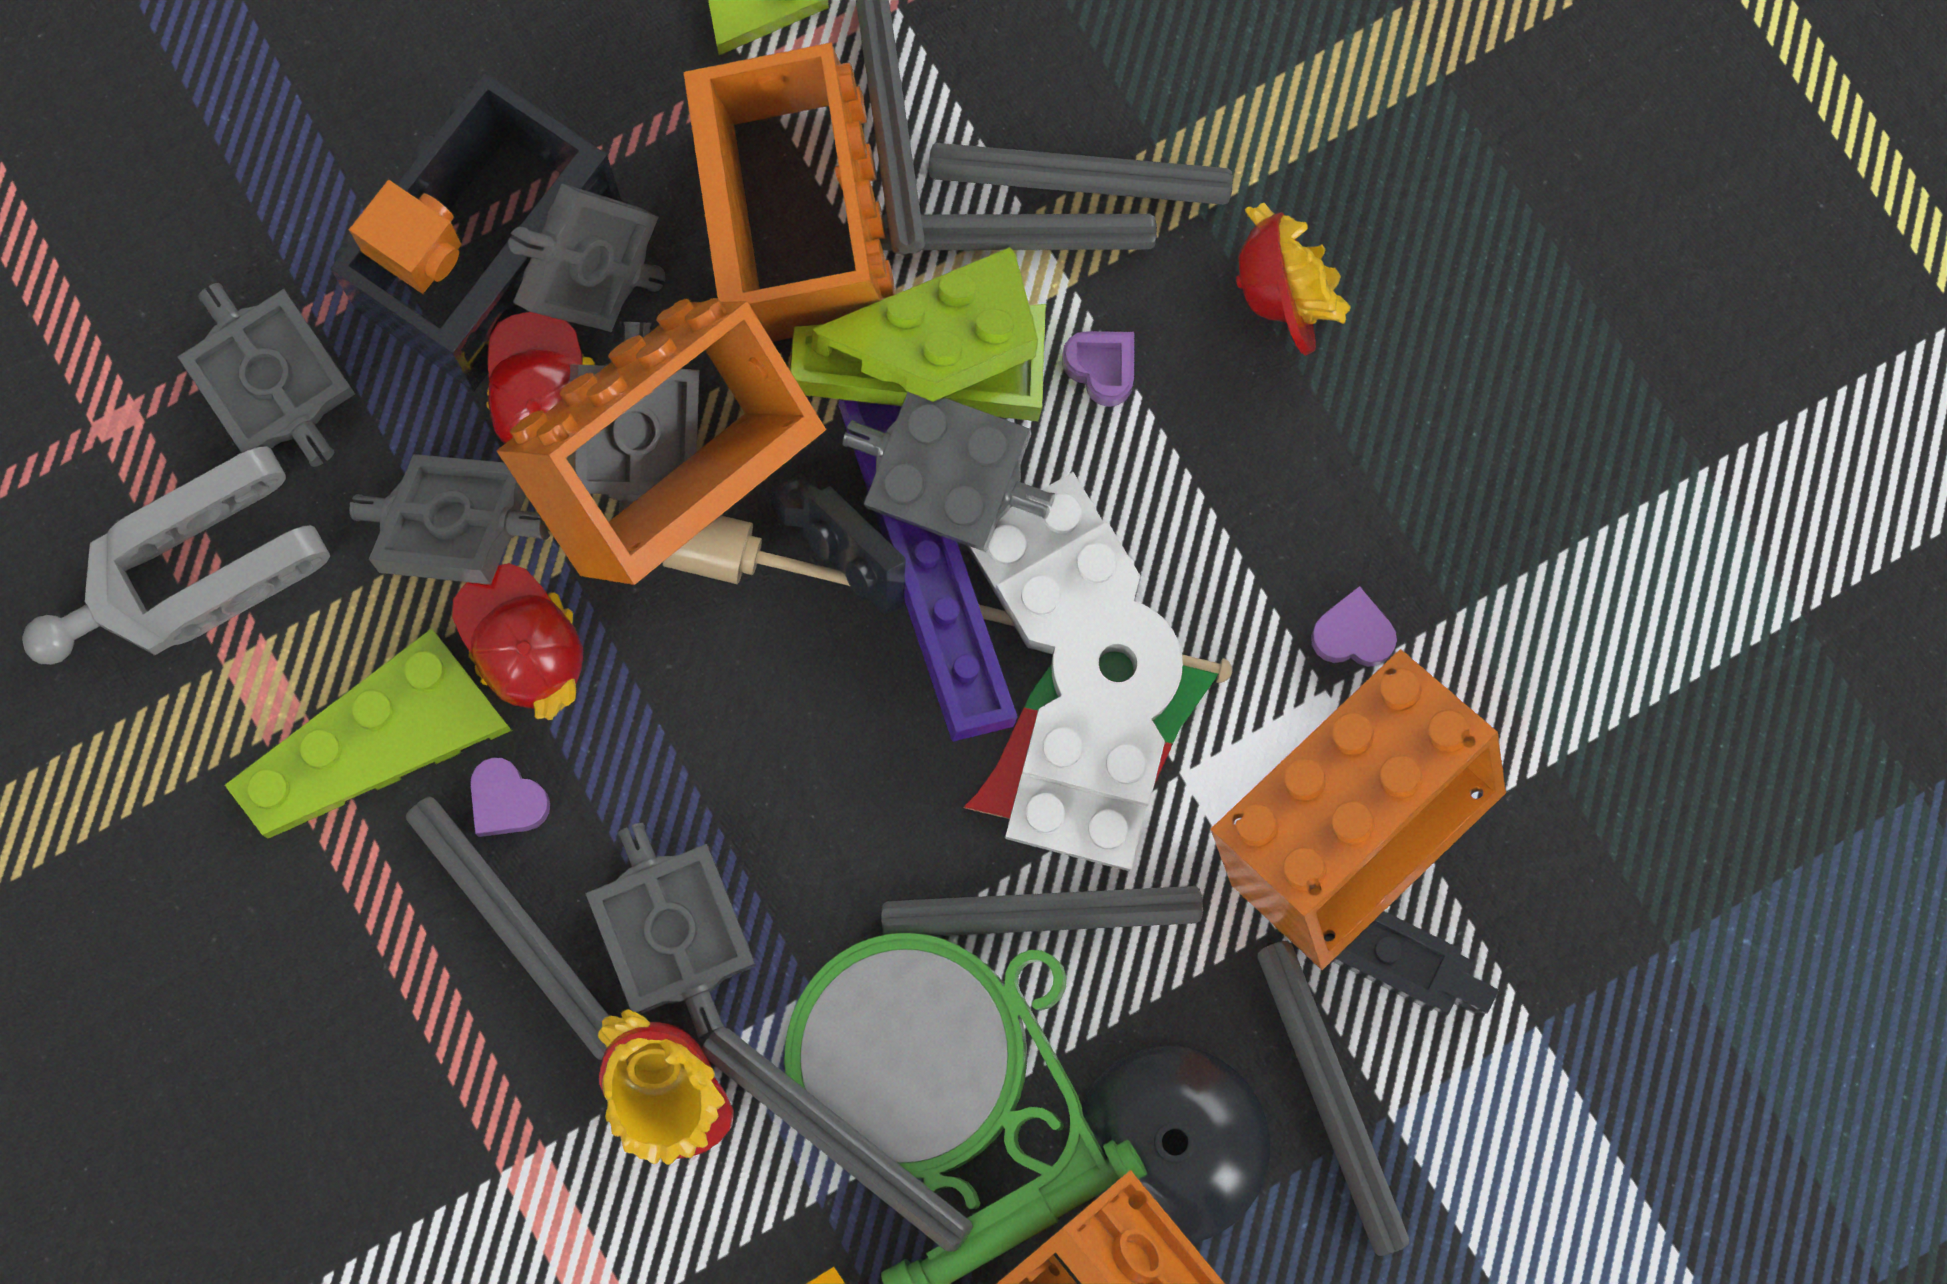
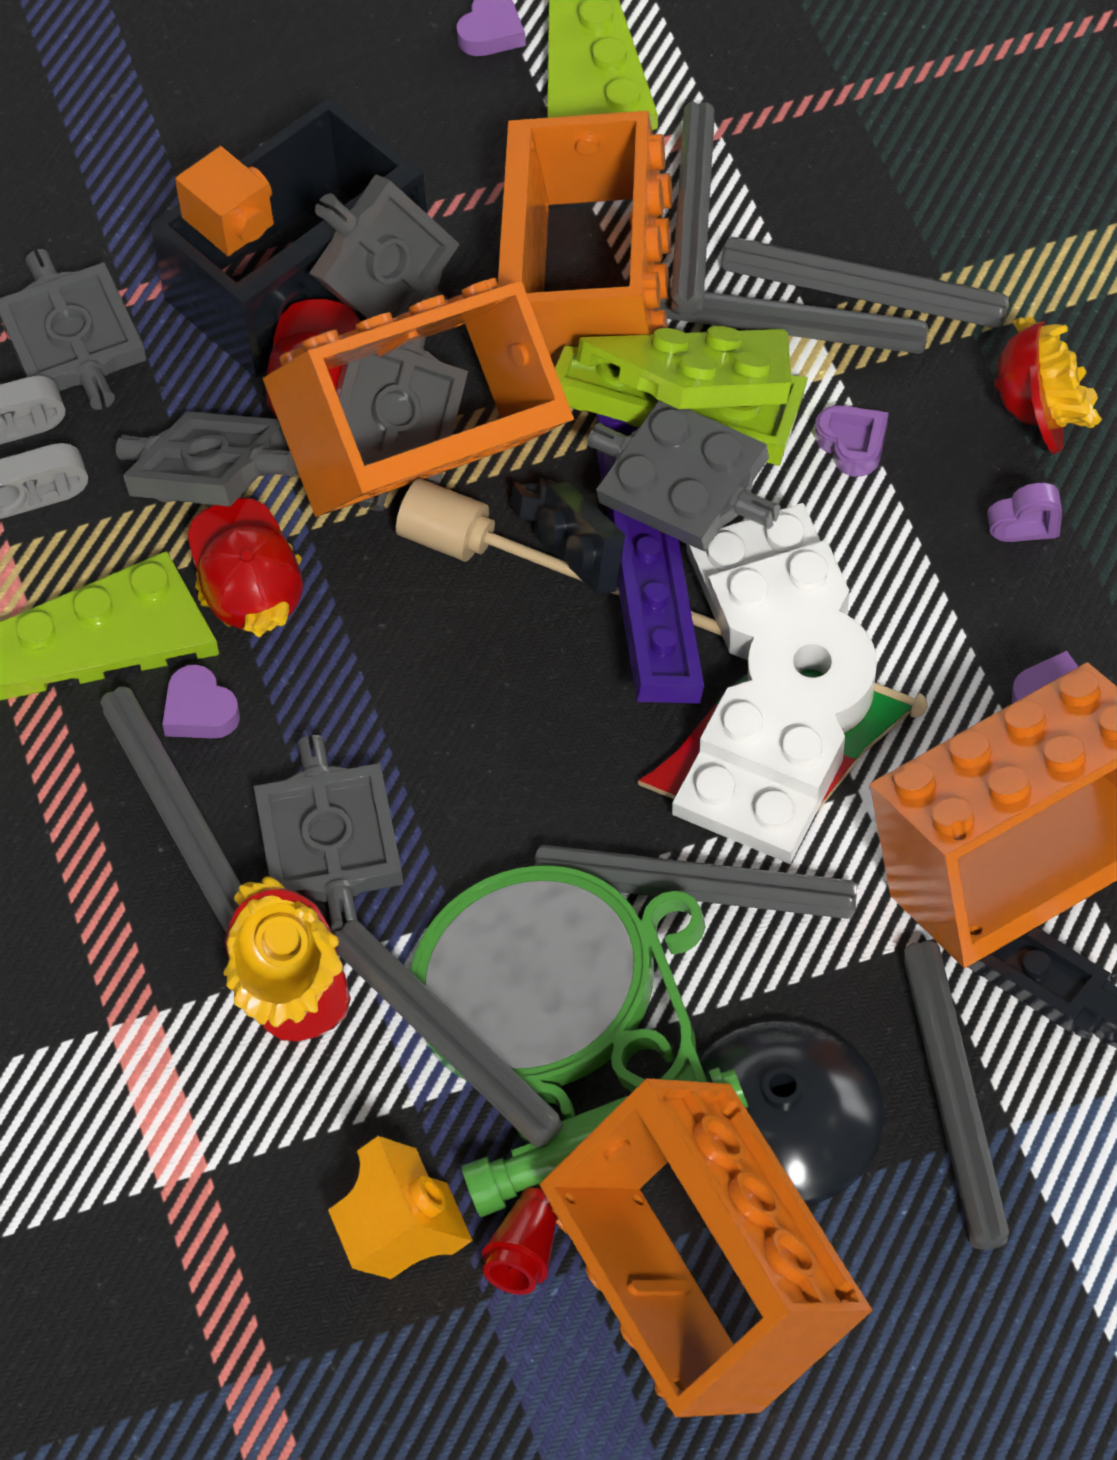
camera: 15 degrees right, 20 degrees down
(1294, 435) = (1029, 515): none -> medium lavender tile

